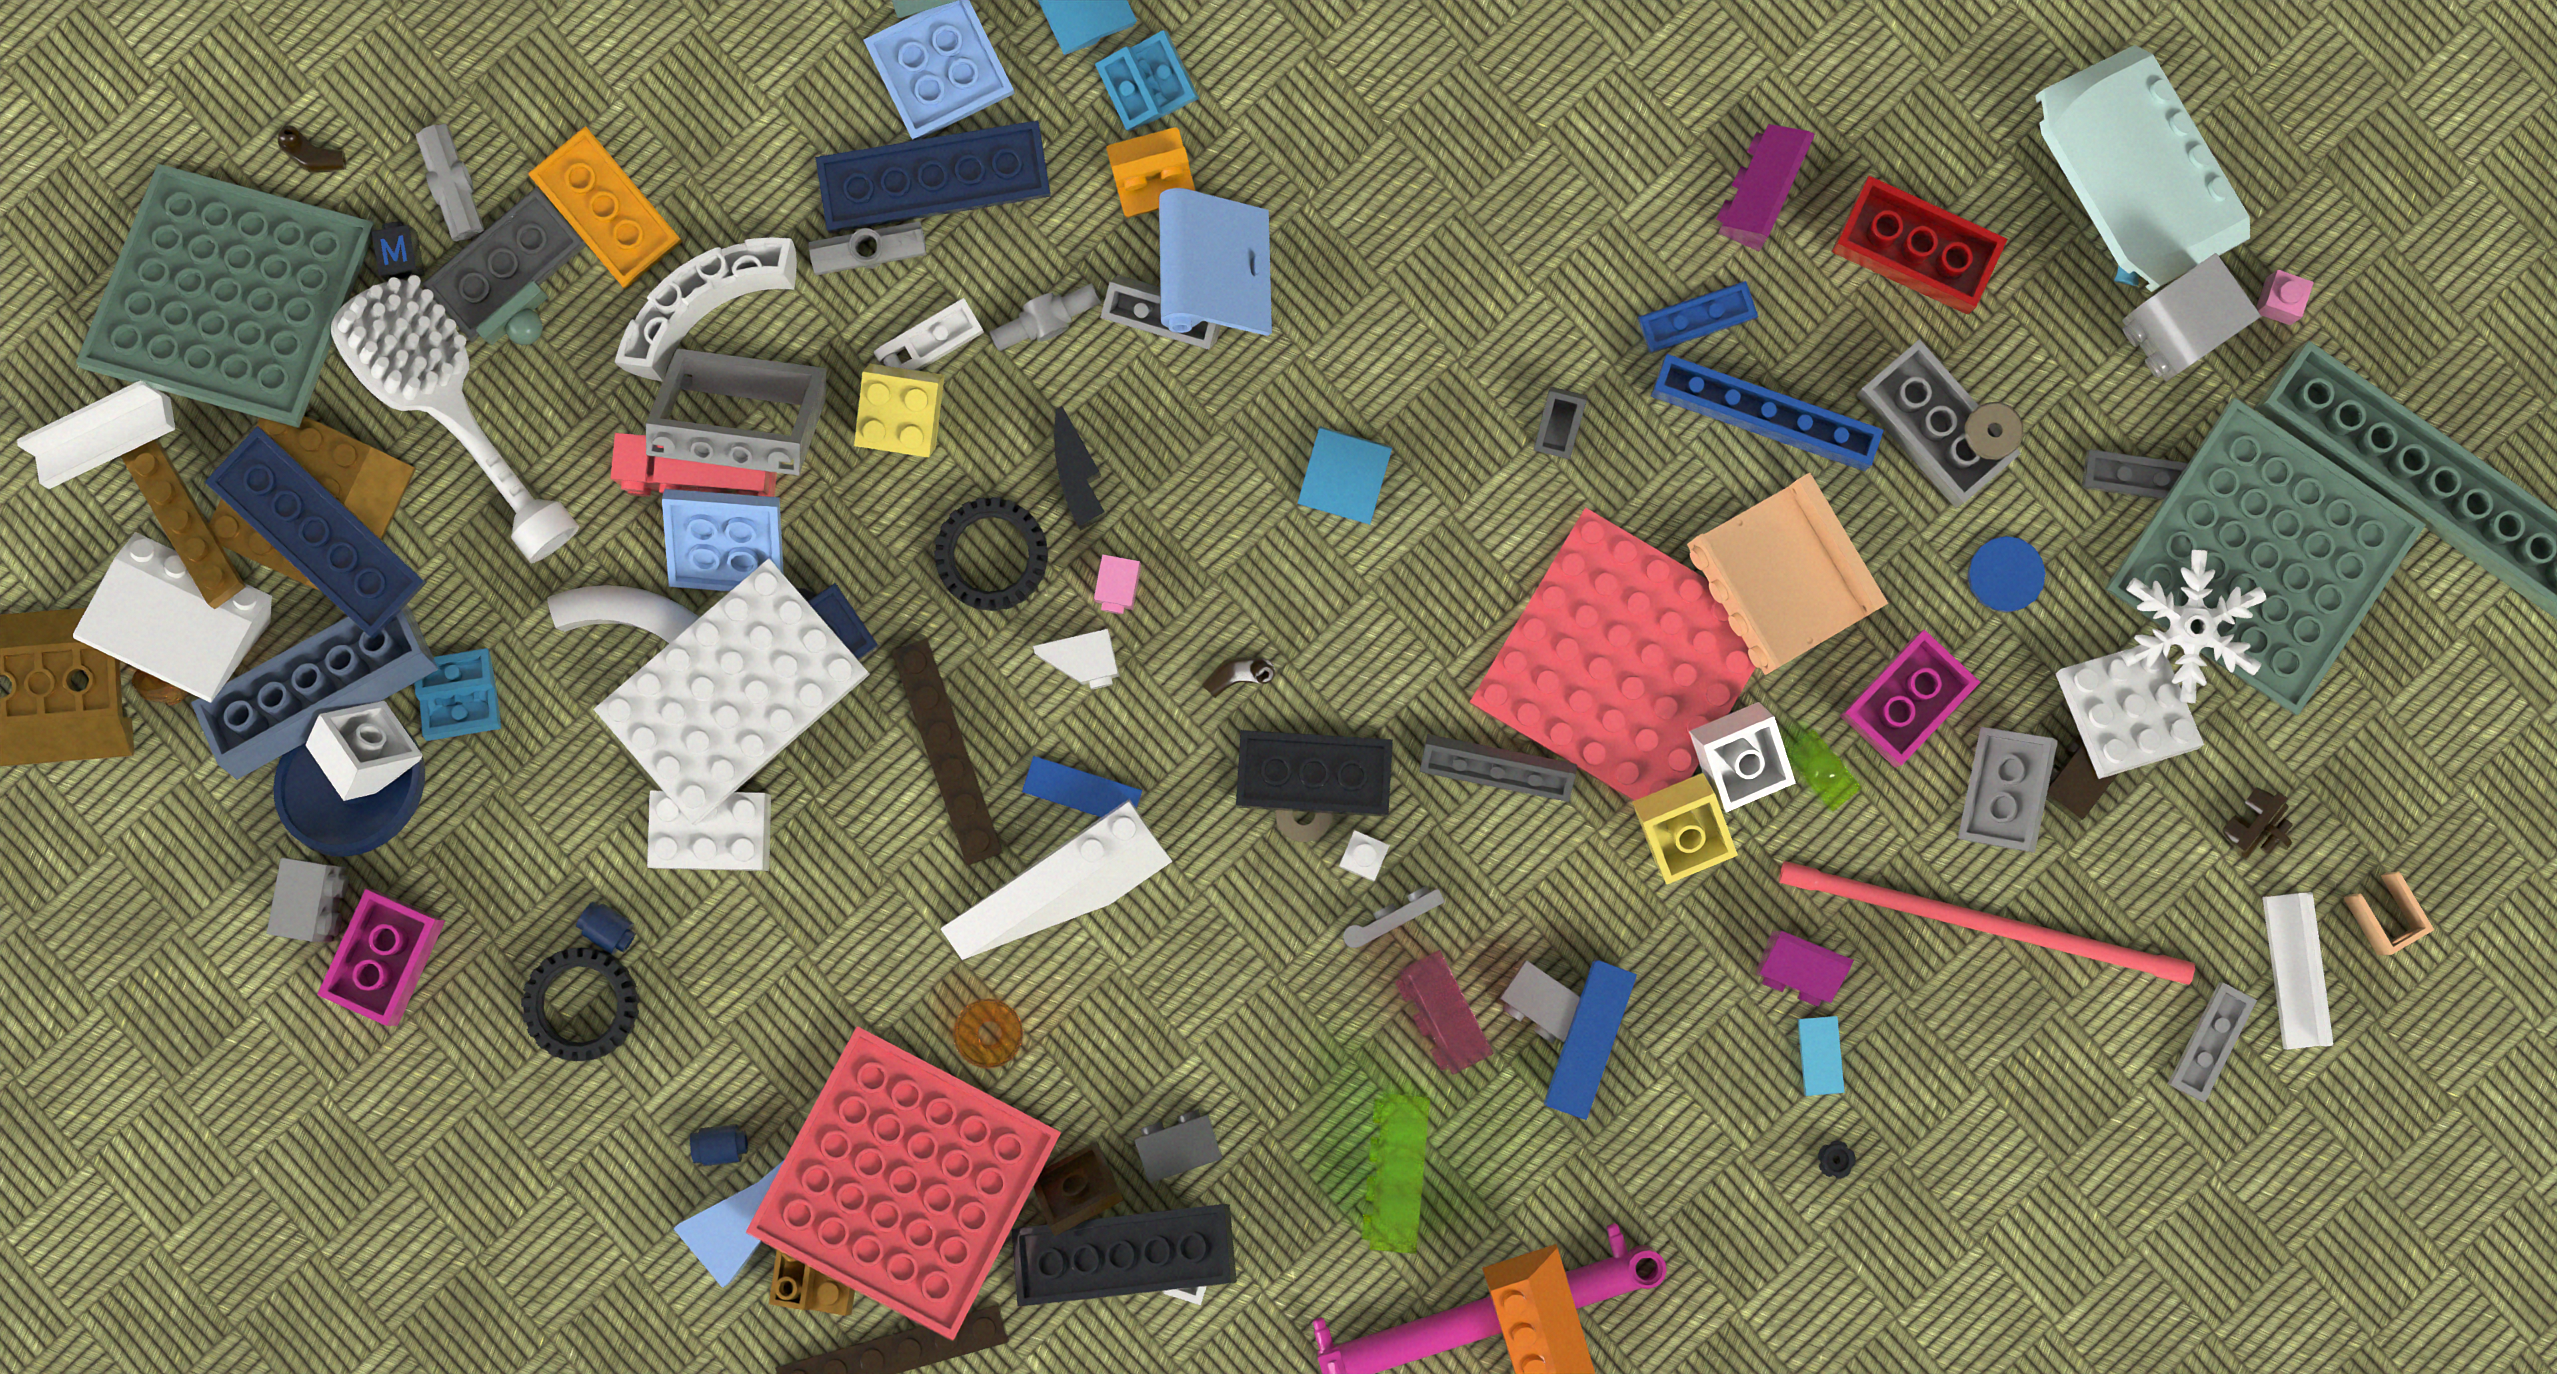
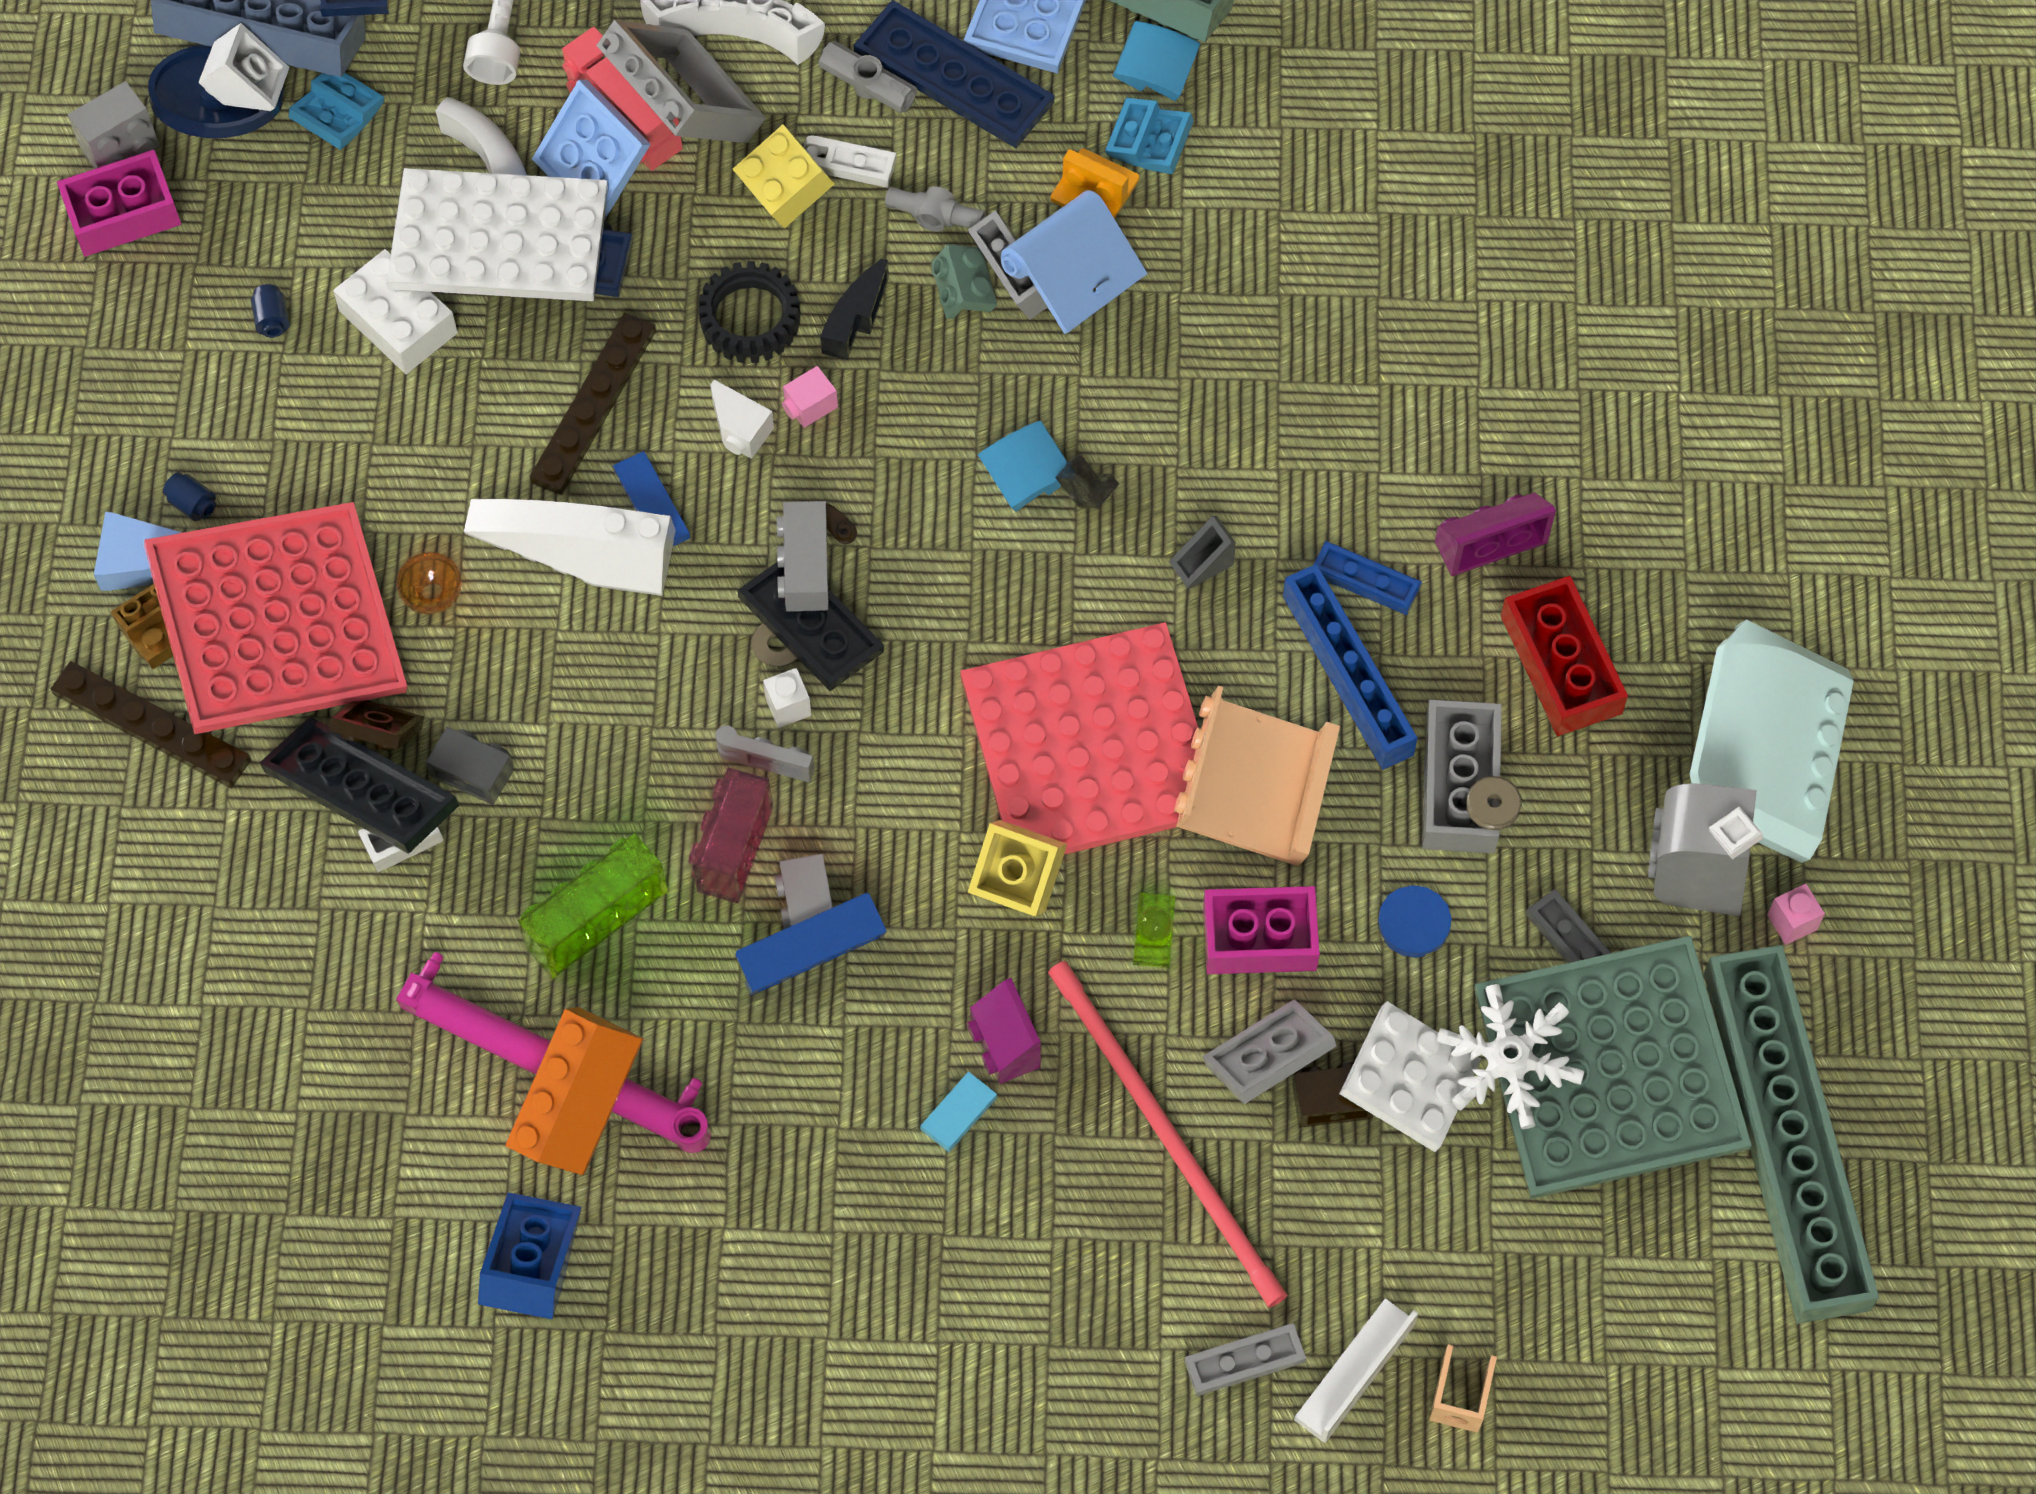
camera: 40 degrees right, 20 degrees down
(534, 1000) = (194, 308): black tyre -> none
(1132, 361) = (963, 280): none -> sand green bracket
(1262, 730) = (803, 556): none -> light grey brick
(1411, 448) = (1084, 485): none -> clear smoke panel
(1498, 768) = (935, 726): dark grey plate -> none
(1742, 756) = (1104, 859): white brick -> none
(1840, 1169) = (895, 1179): black plate -> none
(2234, 305) = (1736, 832): none -> white tile
(2269, 811) = (1429, 1246): dark brown hips -> none

